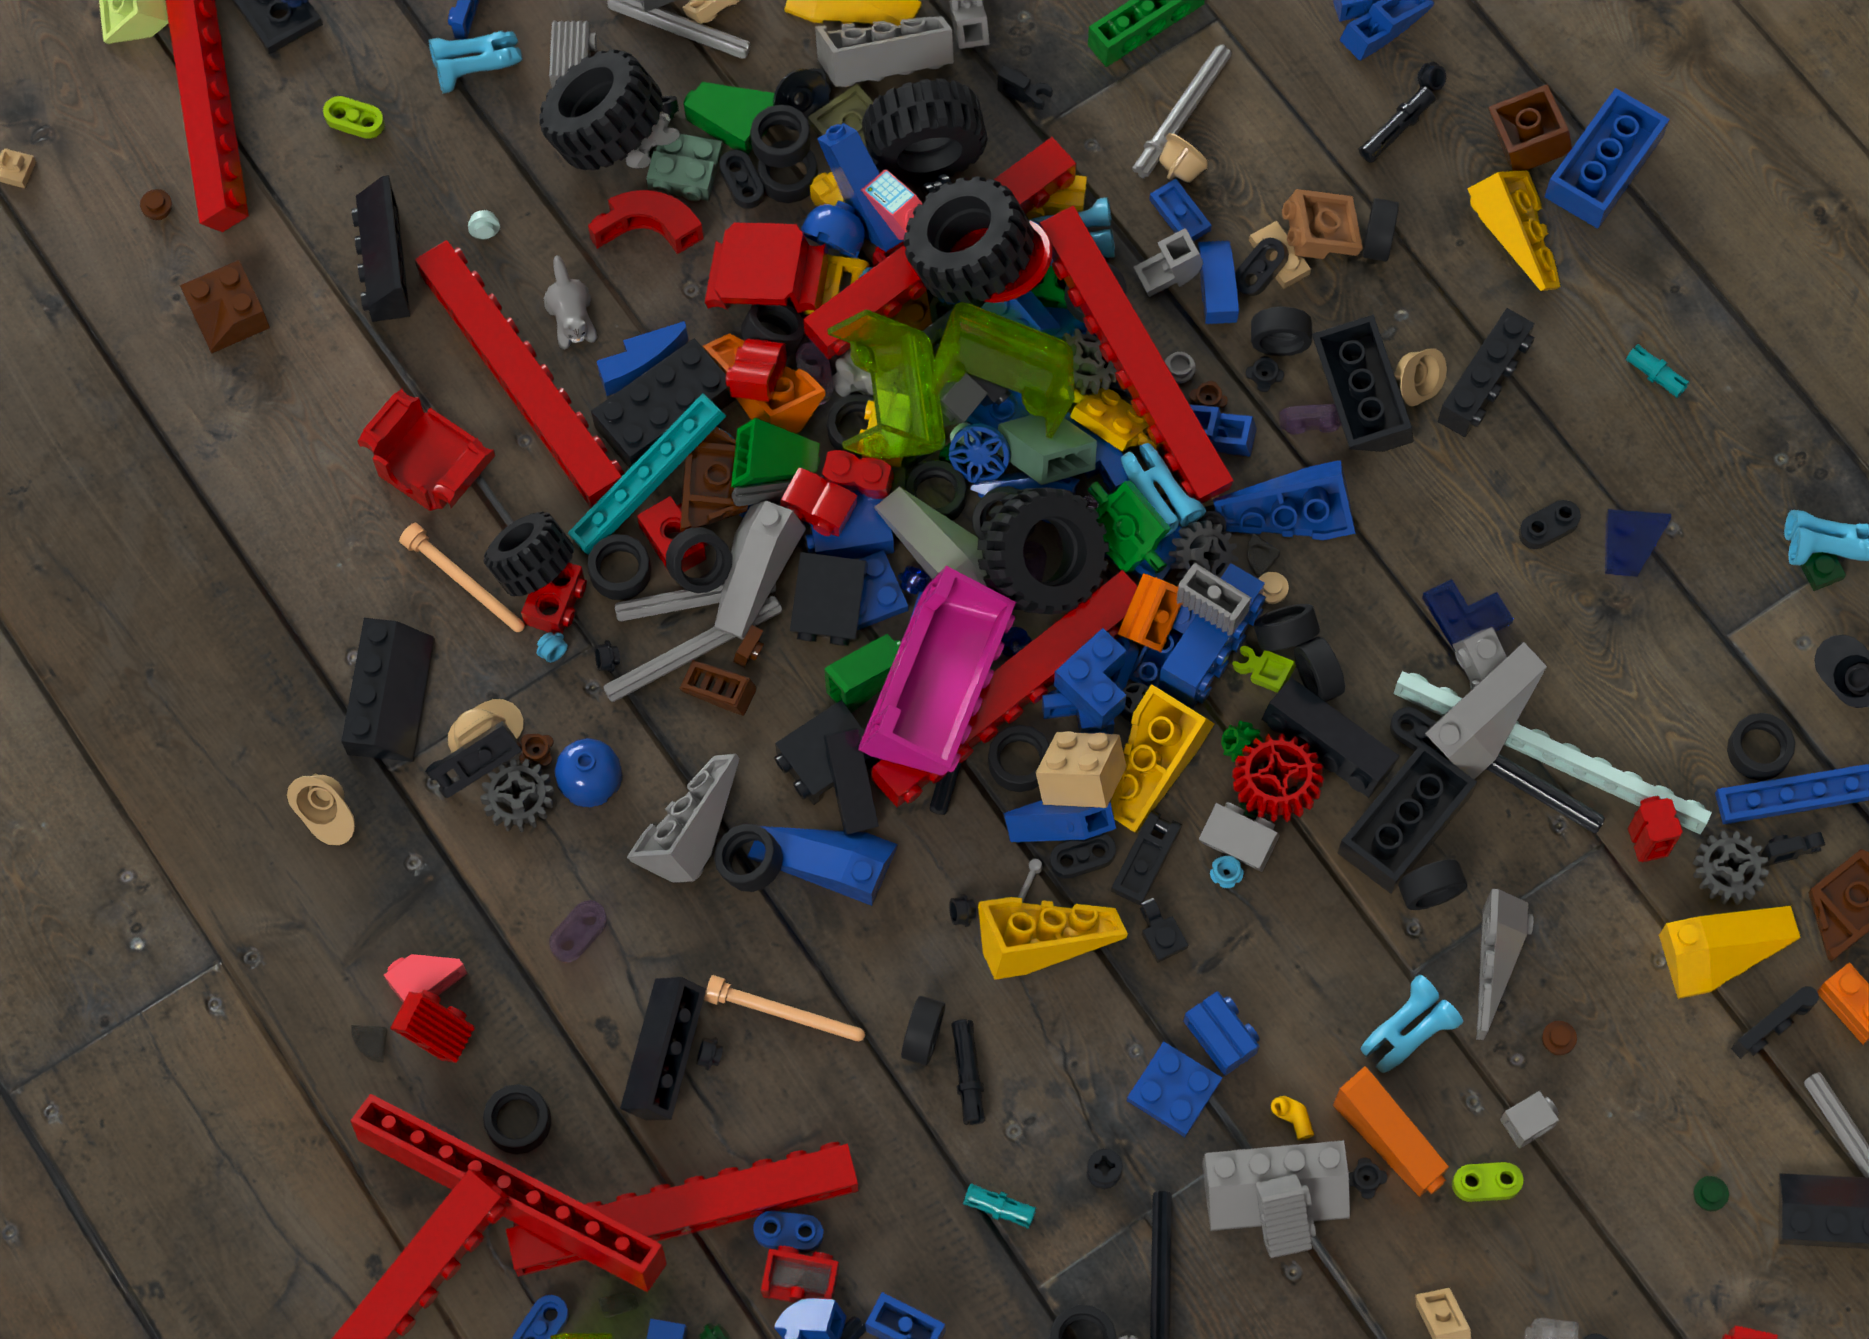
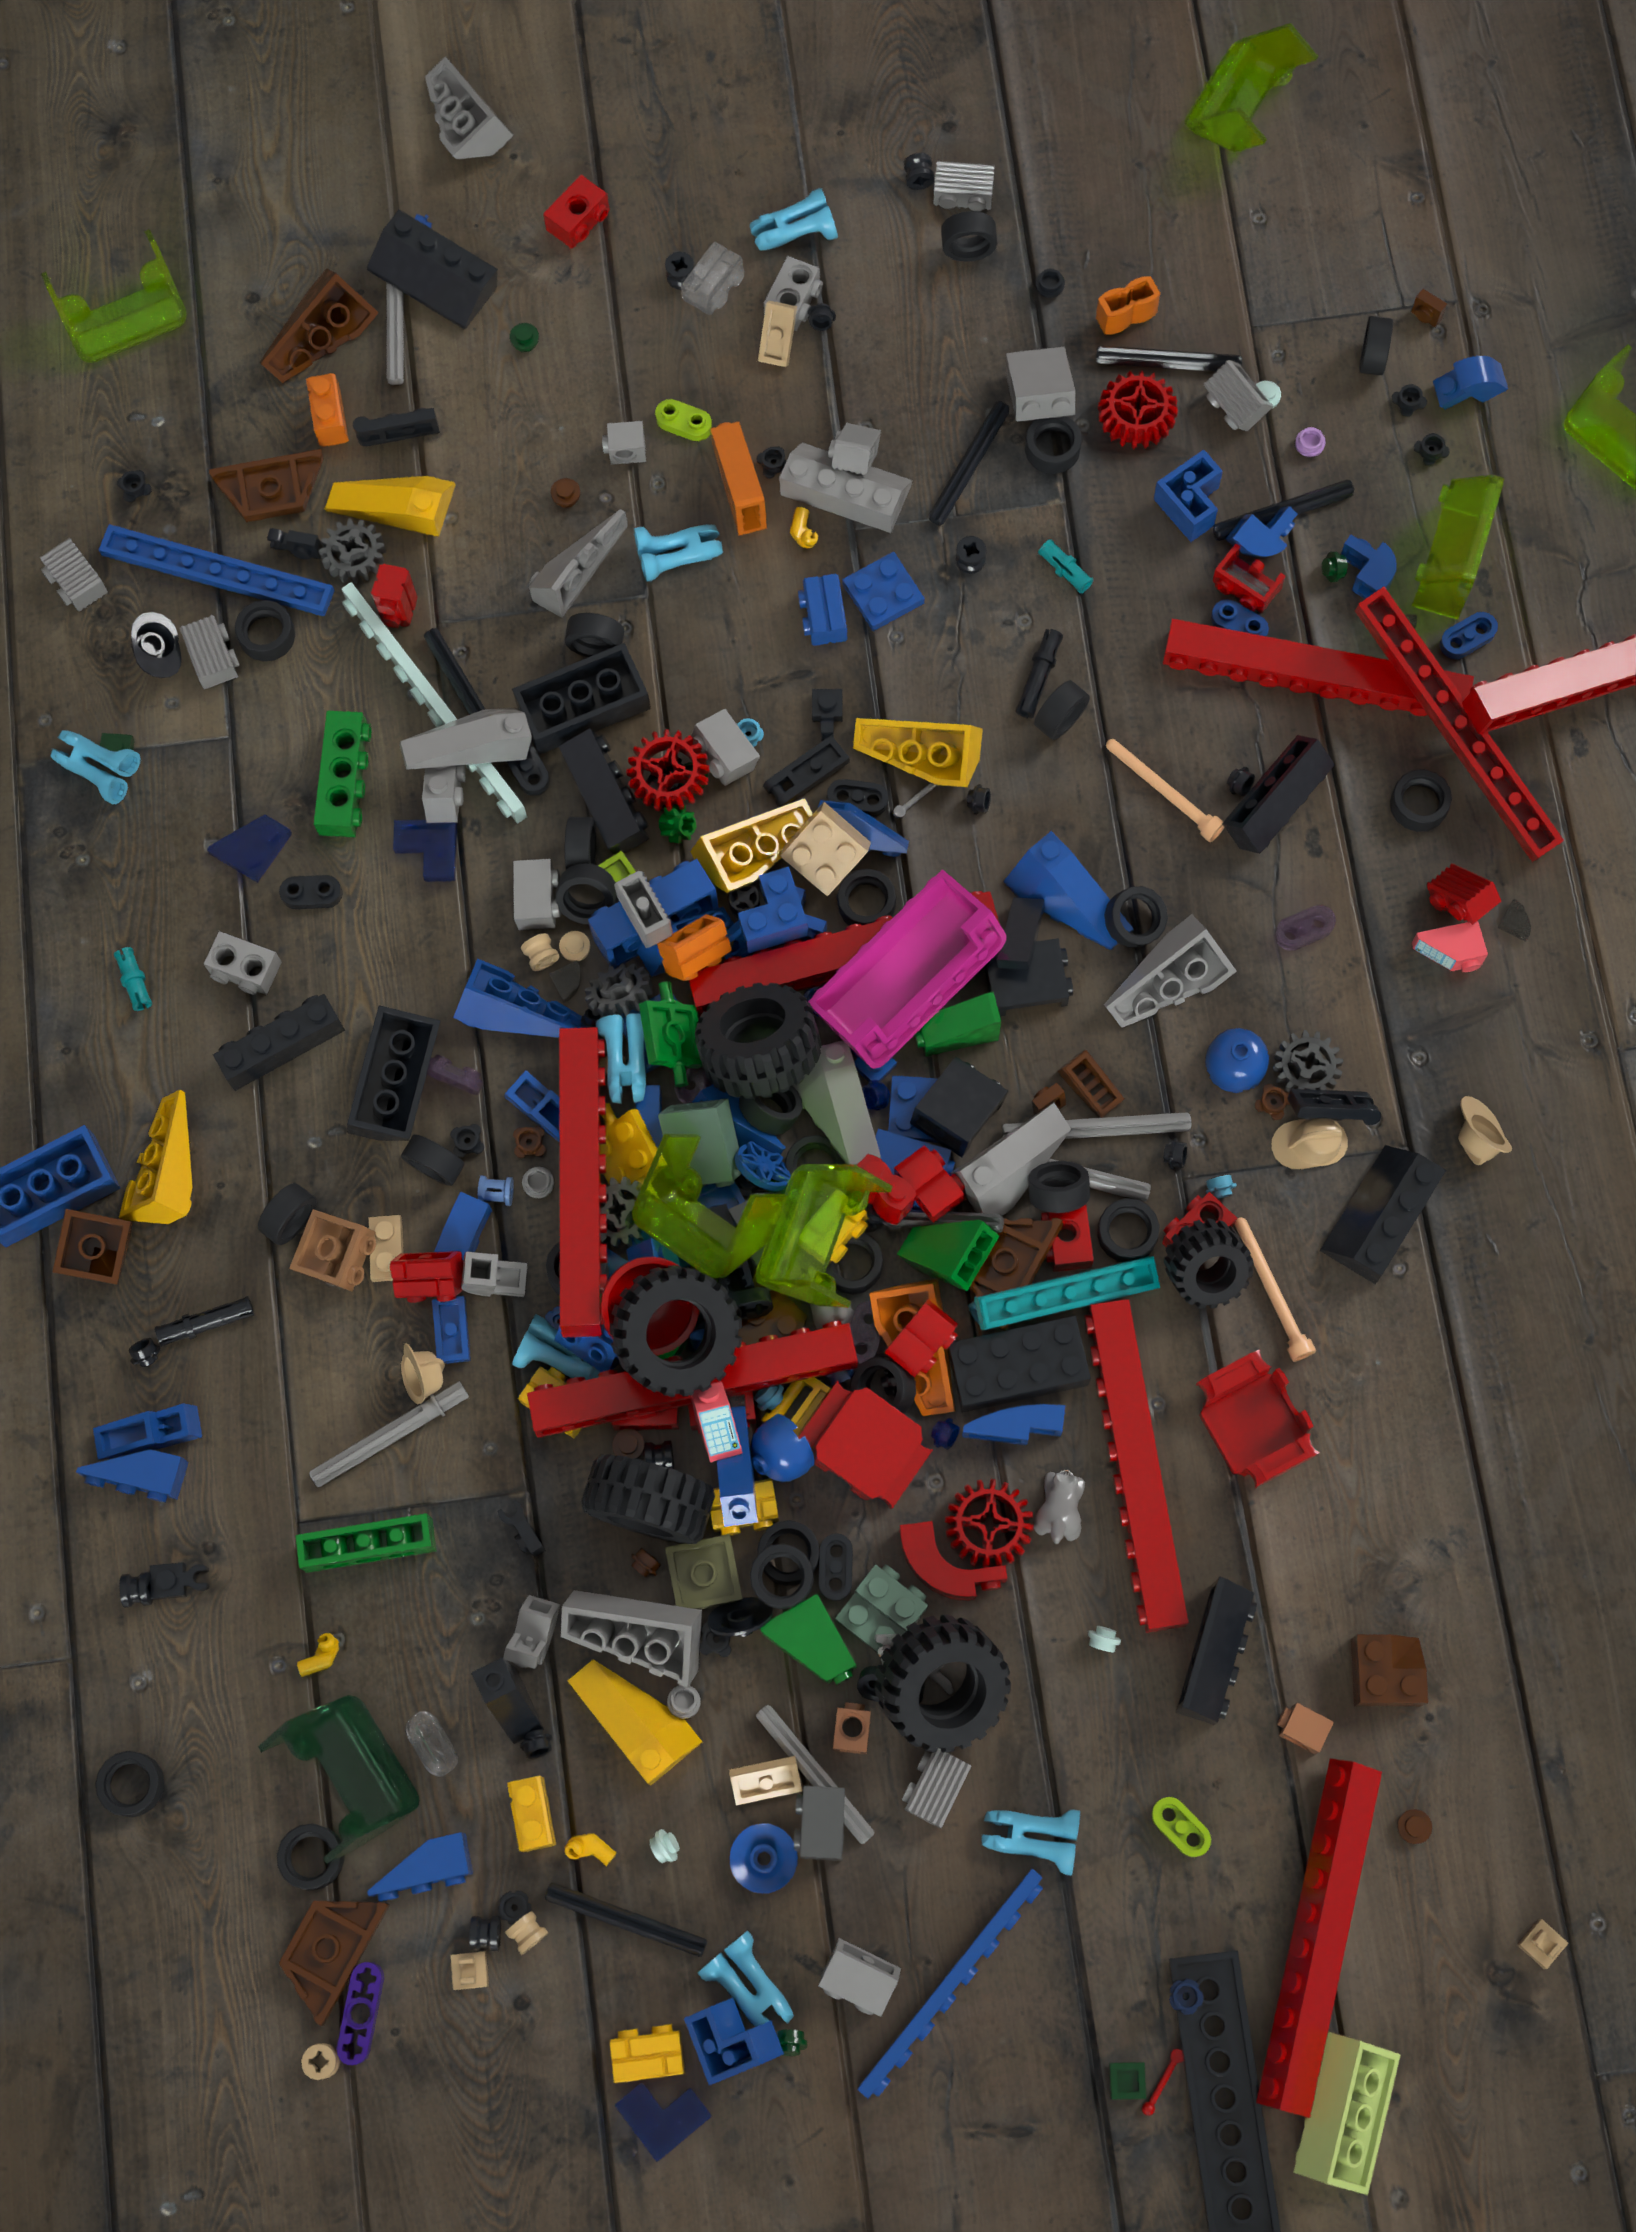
camera: 150 degrees left, 5 degrees up
(280, 233) = (1304, 1727): none -> nougat brick
(645, 256) = (1004, 1524): none -> red gear
(659, 54) = (852, 1744): none -> nougat brick
(701, 324) = (945, 1433): none -> clear blue plate
(810, 21) = (683, 1702): none -> light grey plate
(1212, 340) = (506, 1186): none -> medium blue bush
(1226, 235) = (427, 1275): none -> red brick
(1259, 264) = (410, 1234): black plate -> none
(1299, 563) = (540, 952): none -> tan wheel
(1337, 609) = (535, 894): none -> light grey brick
(1420, 375) = (340, 1067): tan piece -> none
(1568, 434) = (245, 959): none -> light grey brick
(1578, 595) = (340, 729): none -> green brick
(1798, 698) = (209, 652): none -> light grey brick

